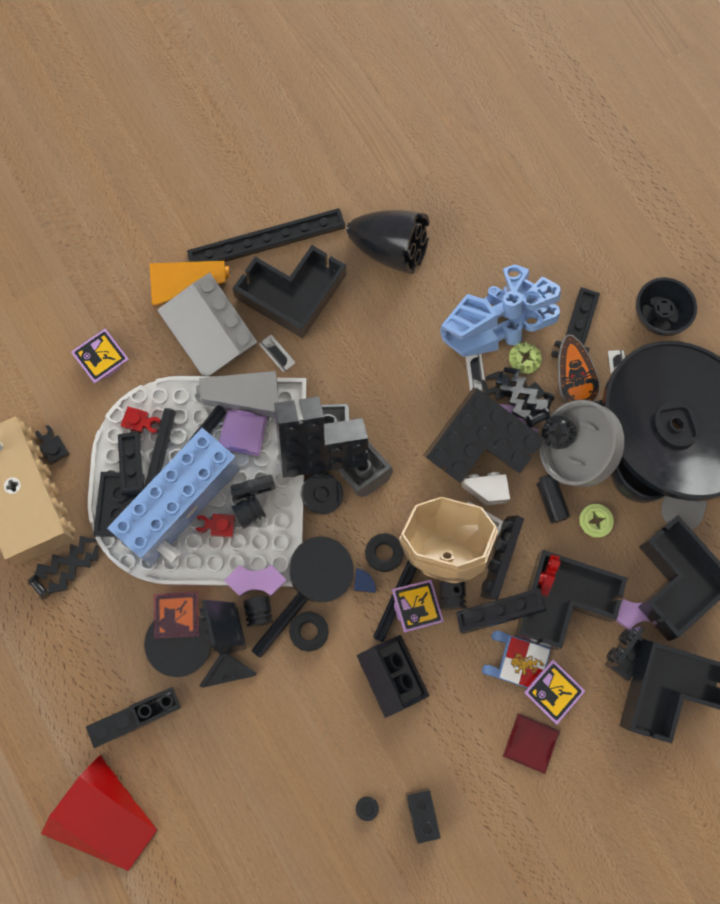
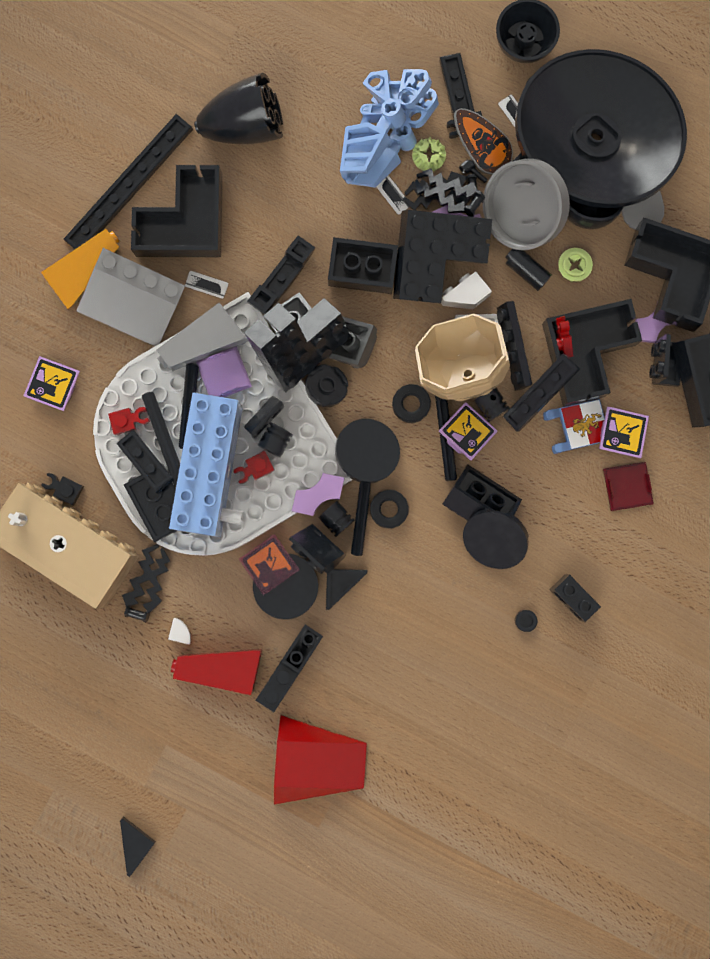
camera: 25 degrees left, 10 degrees up
(63, 626) = (179, 632): none -> white tile
(76, 682) = (222, 670): none -> red slope
(344, 382) = (282, 276): none -> black slope
(364, 582) = (409, 439): dark blue tile -> none
(383, 716) = (496, 539): none -> black tile
(413, 413) = (362, 265): none -> black brick
(552, 386) = (468, 166): none -> black hand
(567, 426) = (490, 202): black gear -> none

